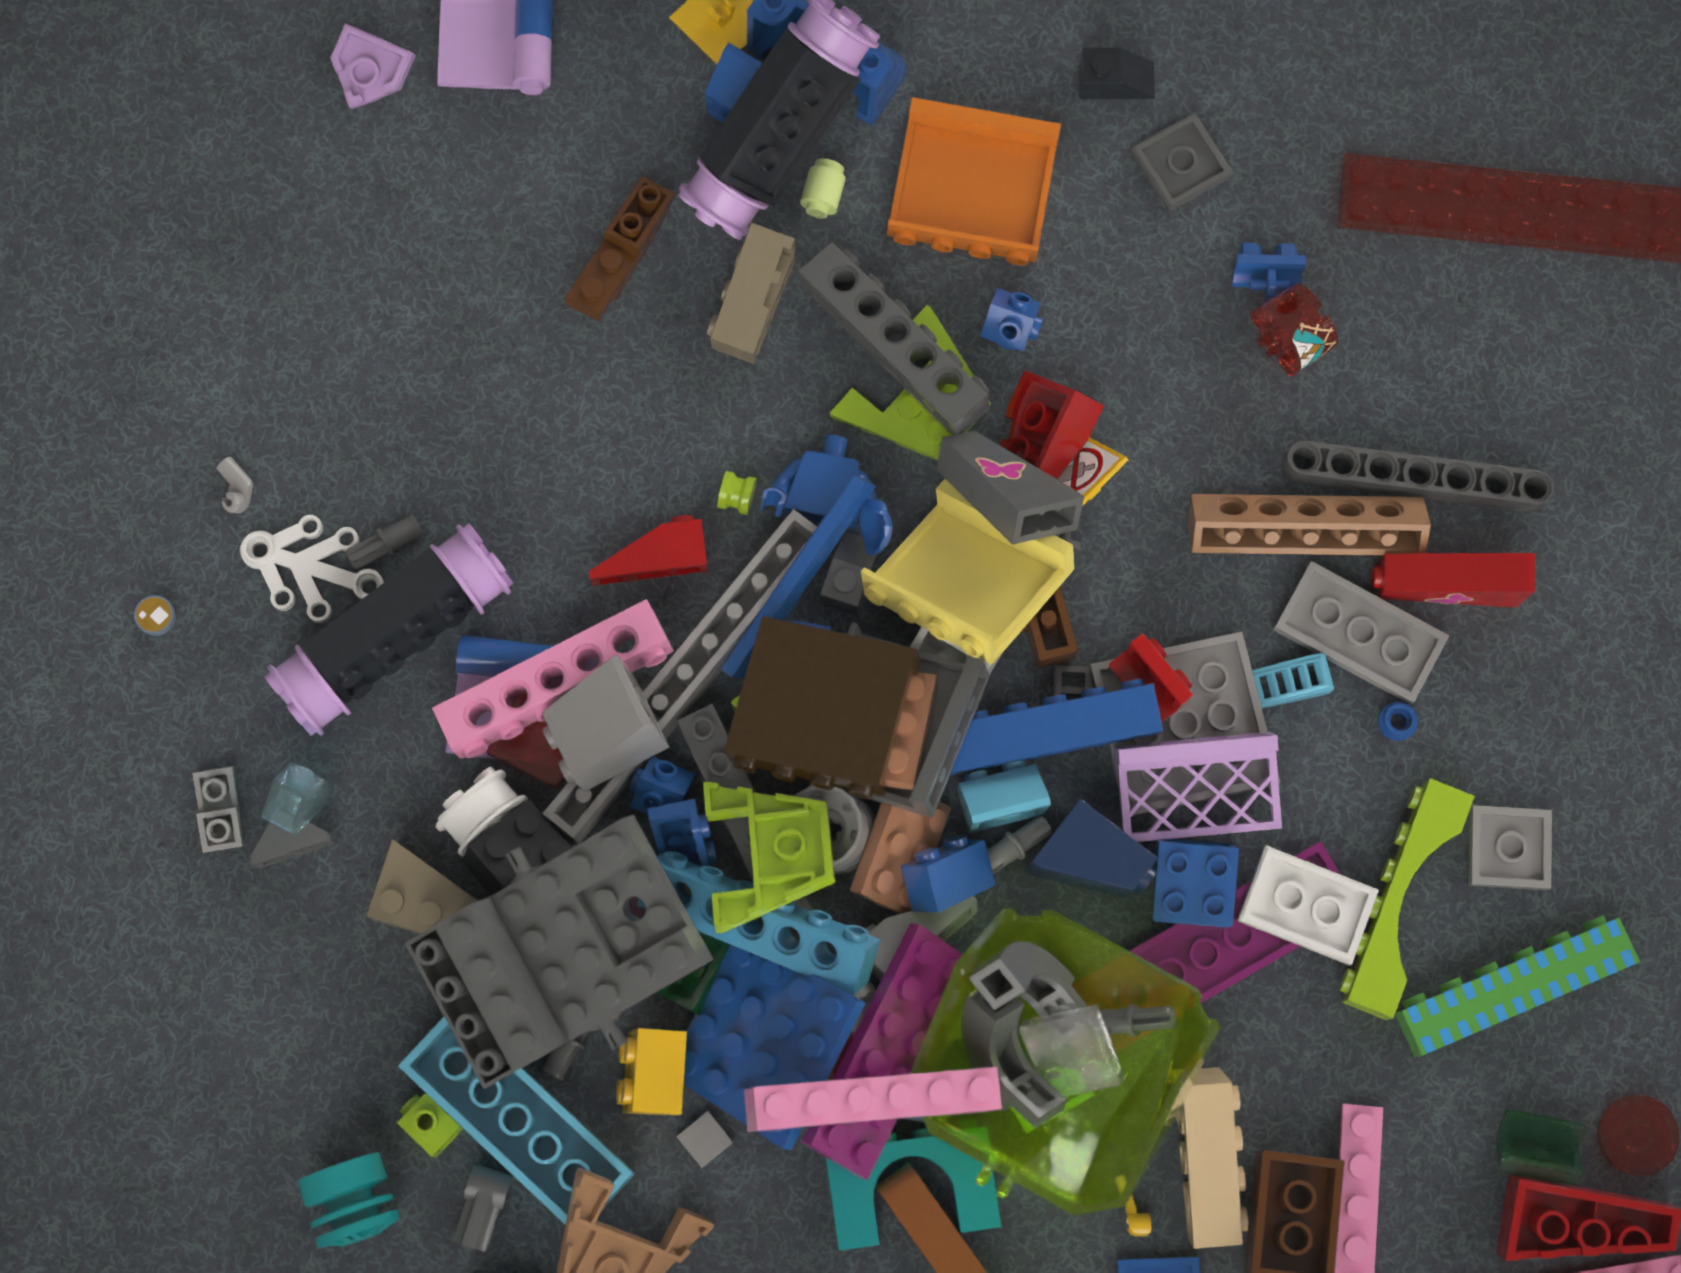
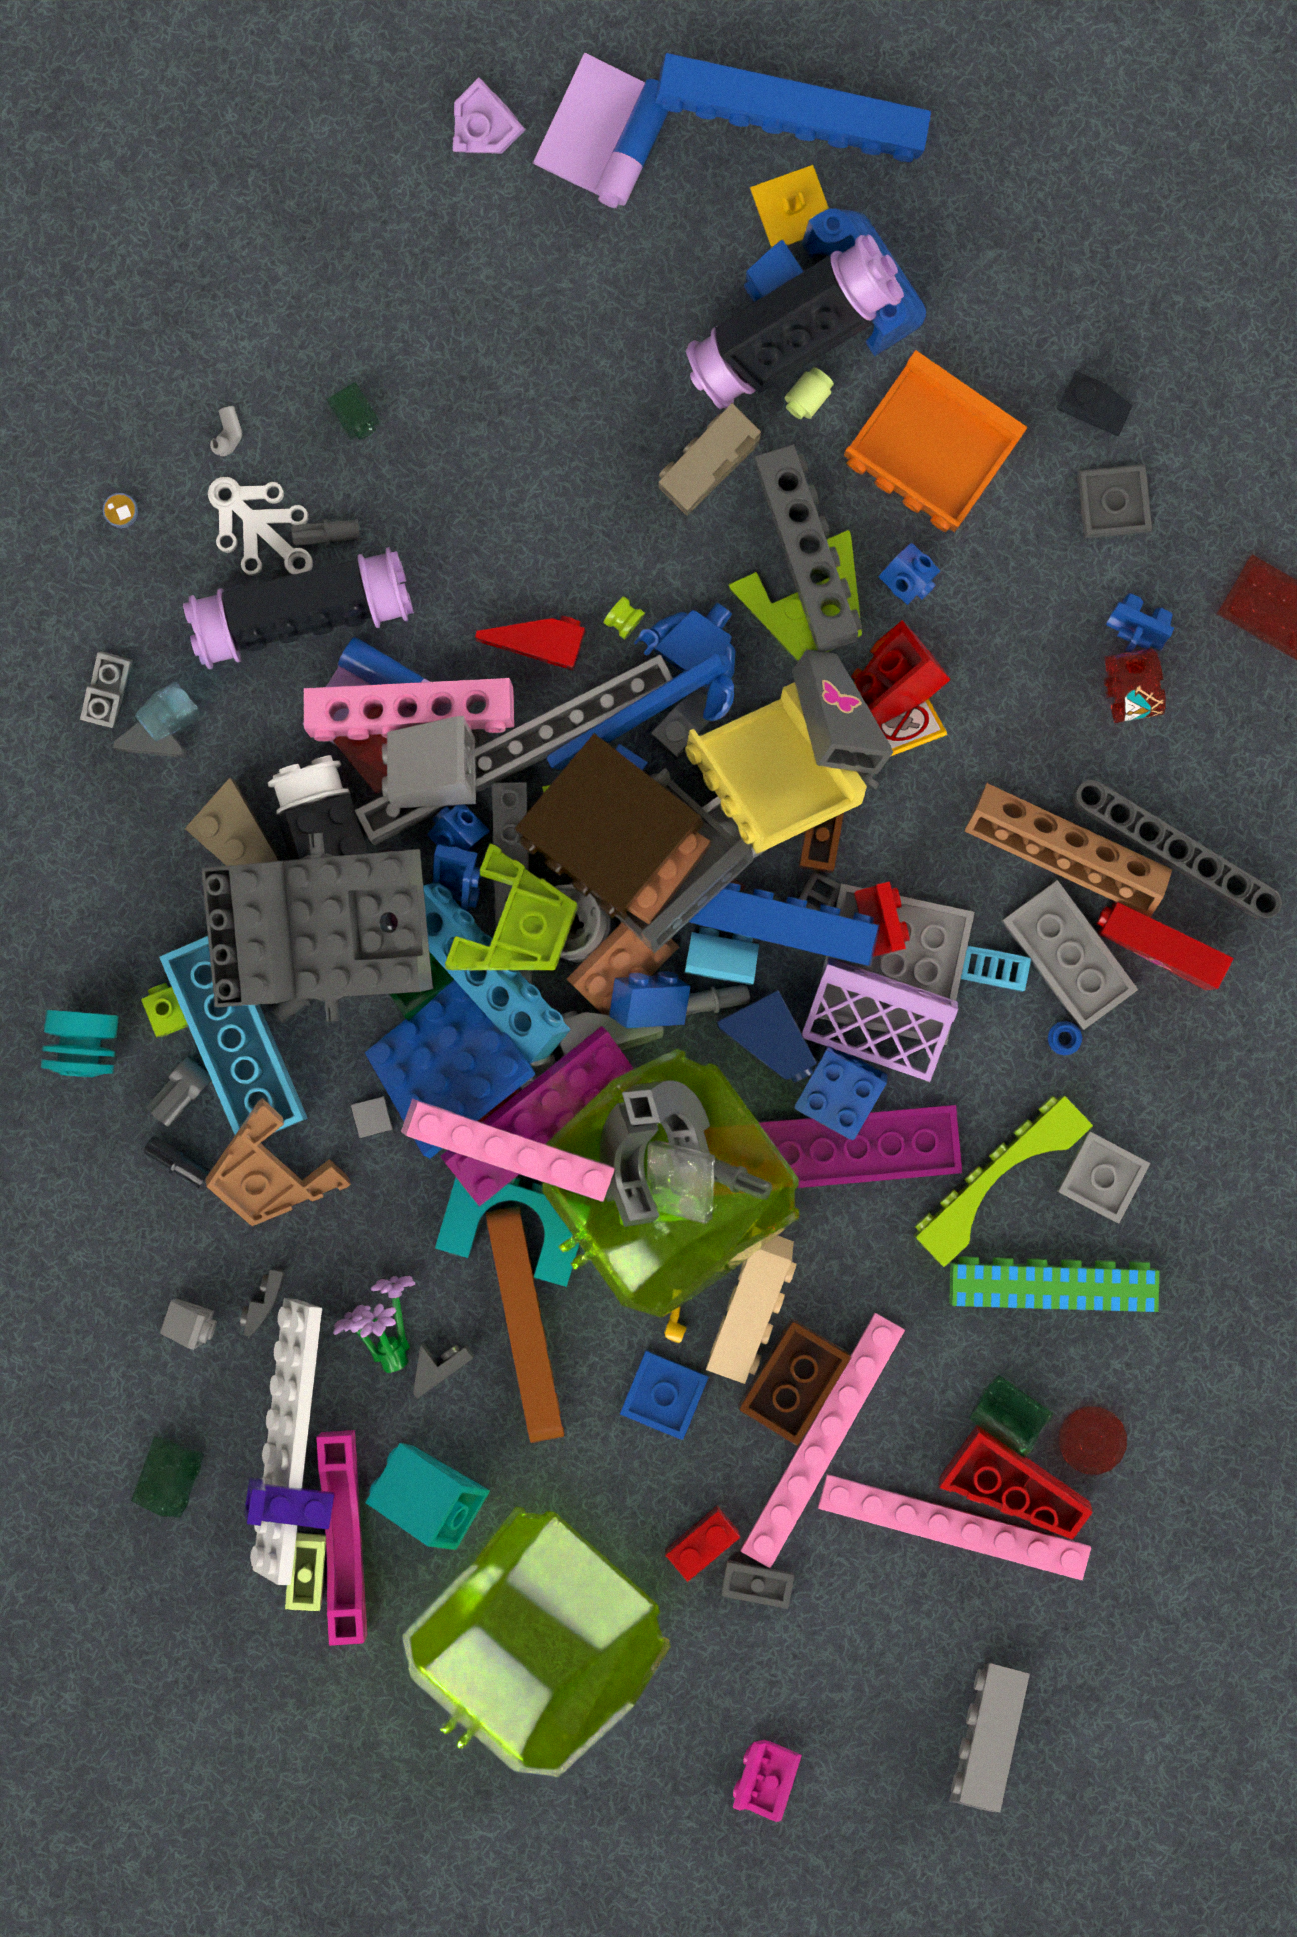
camera: 25 degrees right, 10 degrees up
(360, 407) = (353, 412): none -> clear green brick
(621, 249) = (621, 372): reddish brown slope -> none
(652, 1072) = (352, 1049): yellow slope -> none
(1307, 905) = (920, 1150): white tile -> none

